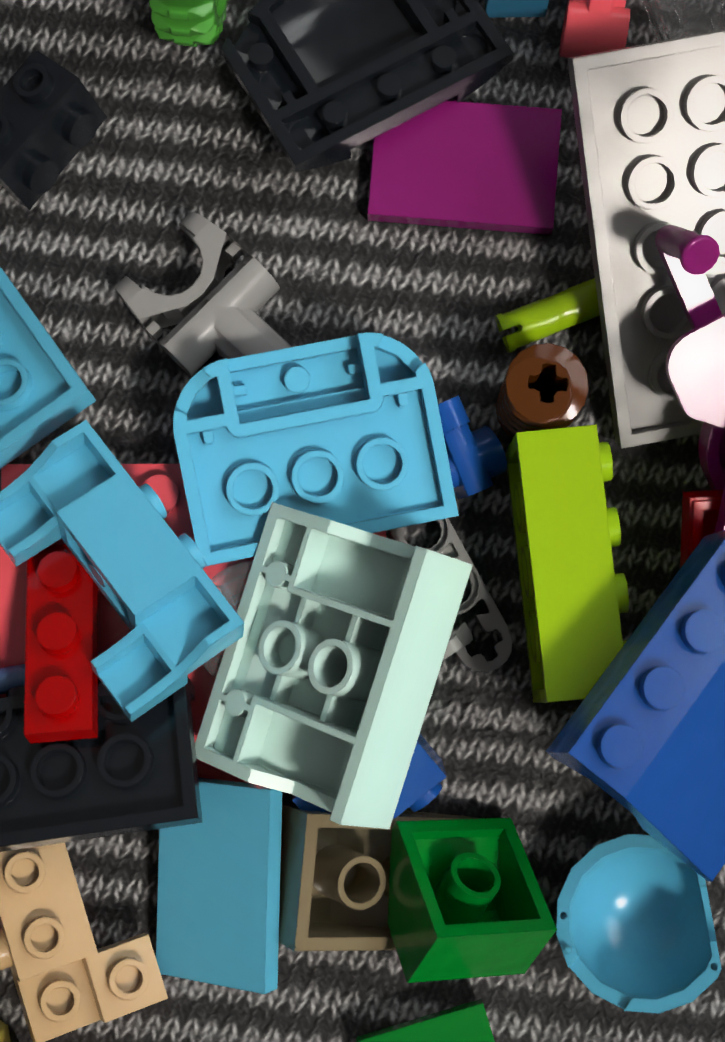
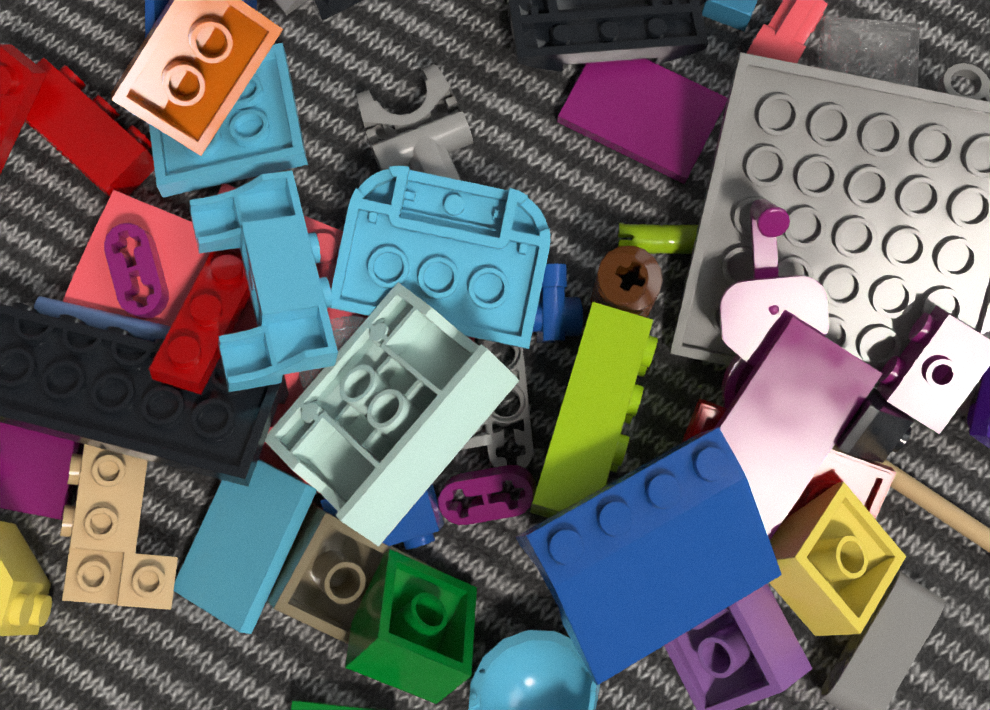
camera: 20 degrees right, 5 degrees down
(479, 706) = (489, 506): none -> magenta beam

